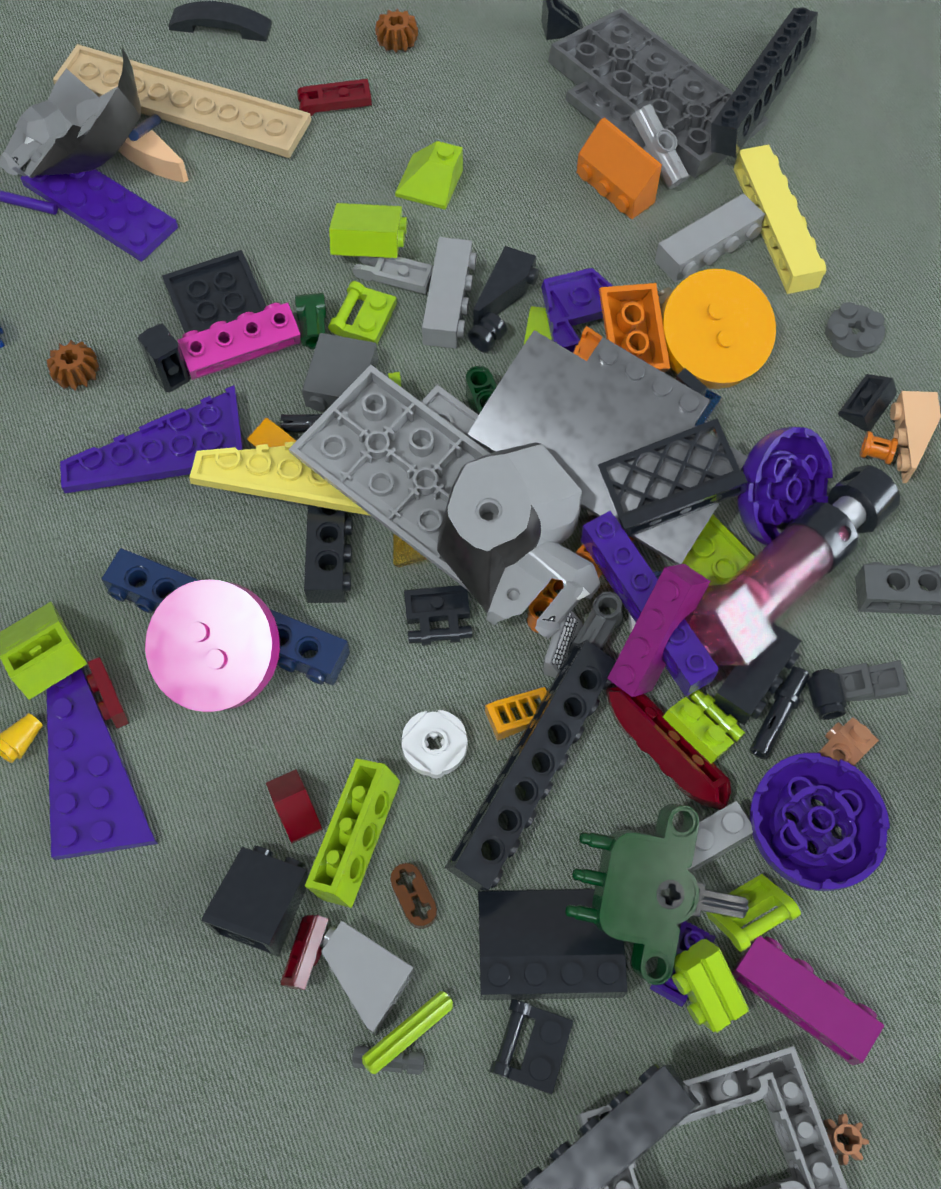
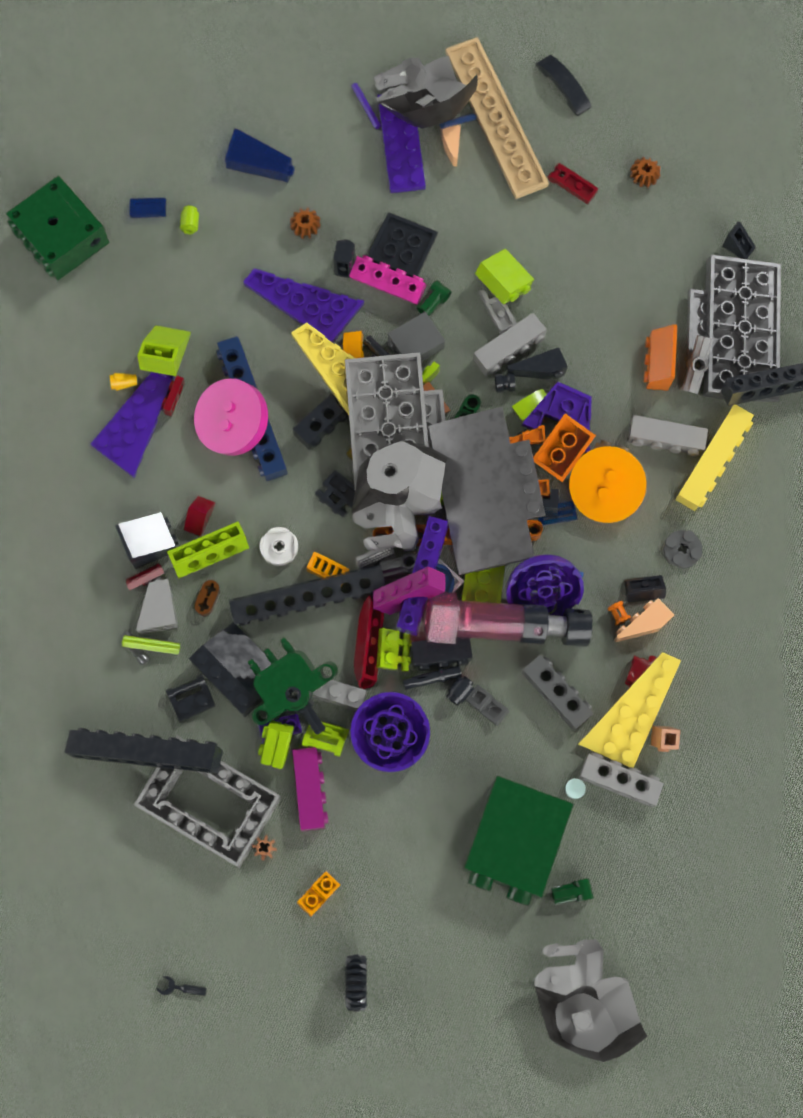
camera: 45 degrees right, 10 degrees up
(371, 318) = (463, 323): lime plate -> none
(432, 175) = (571, 274): lime slope -> none
(689, 498) = (486, 549): black fence -> none
(848, 742) = (441, 717): nougat brick -> none

